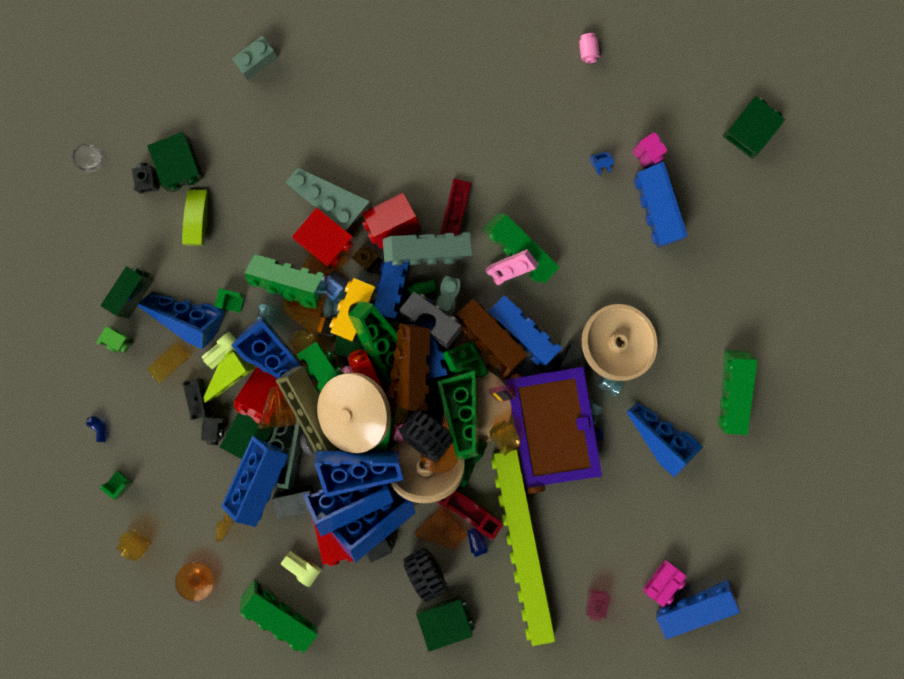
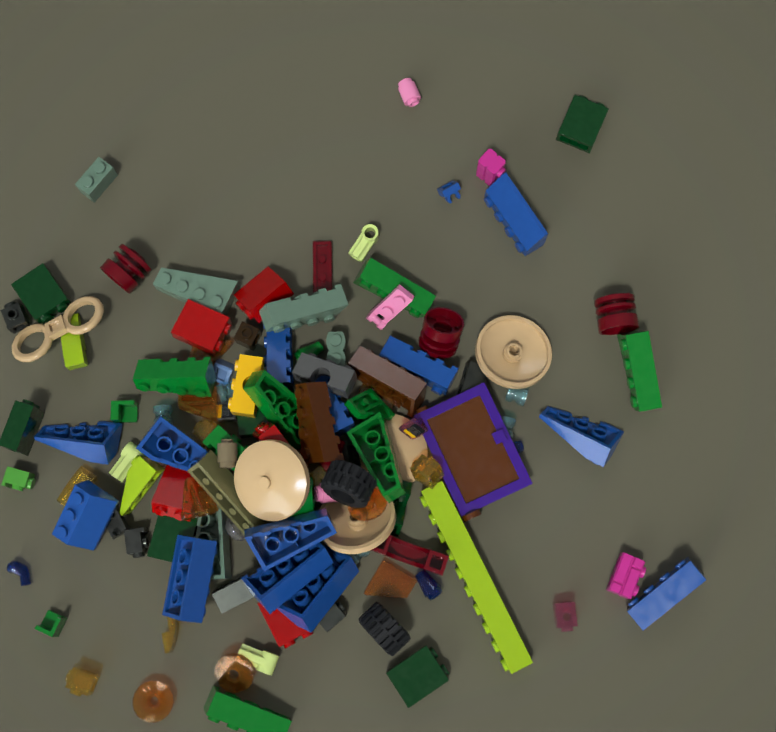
camera: 10 degrees left, 10 degrees down
(169, 394) = (85, 516): none -> blue slope
(183, 201) = (56, 328): none -> tan bar
(262, 159) = (125, 268): none -> dark red wheel
(278, 567) = (234, 662): none -> clear orange tile
(317, 374) = (227, 453): none -> dark tan brick
(502, 194) = (363, 244): none -> yellowish green piece
(554, 306) = (441, 332): none -> dark red wheel
(730, 332) = (615, 313): none -> dark red wheel

